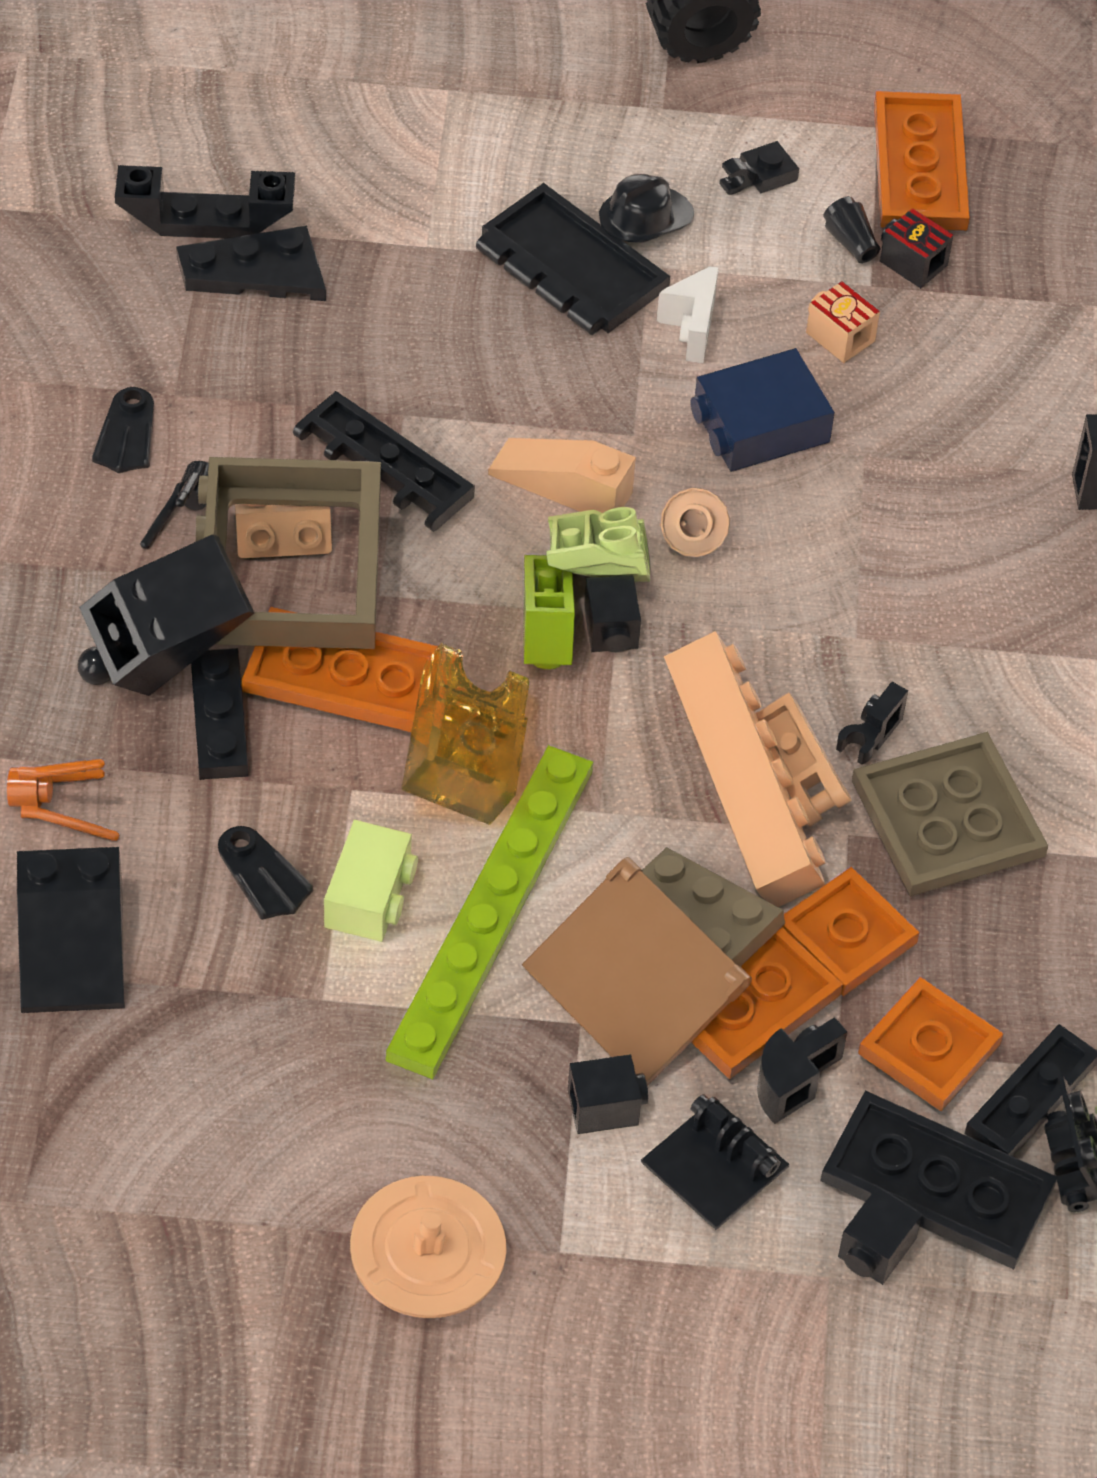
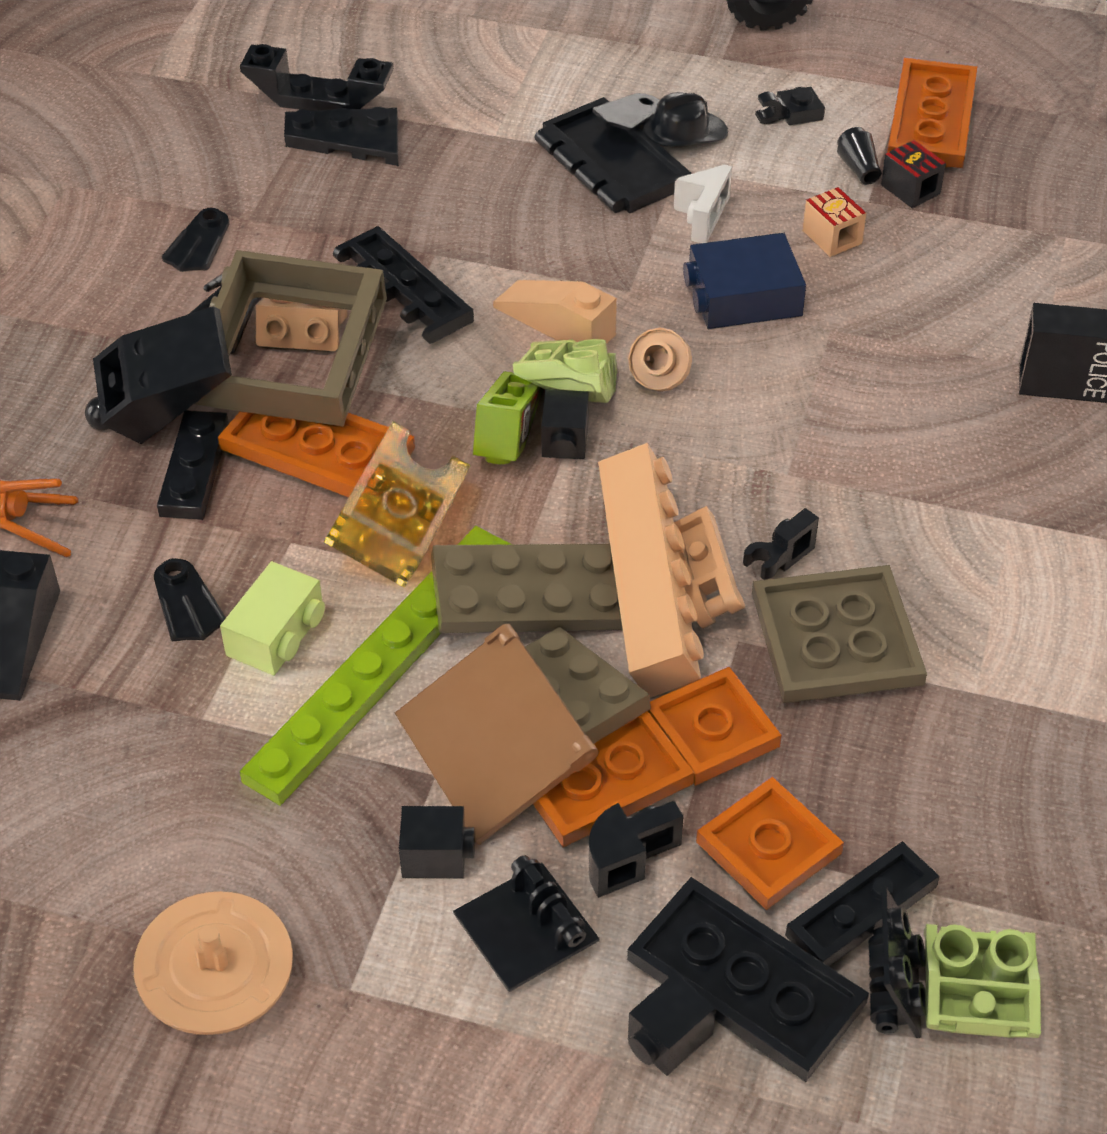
camera: 15 degrees right, 5 degrees down
(578, 200) = (628, 111): none -> piece
(623, 809) = (525, 587): none -> dark tan plate

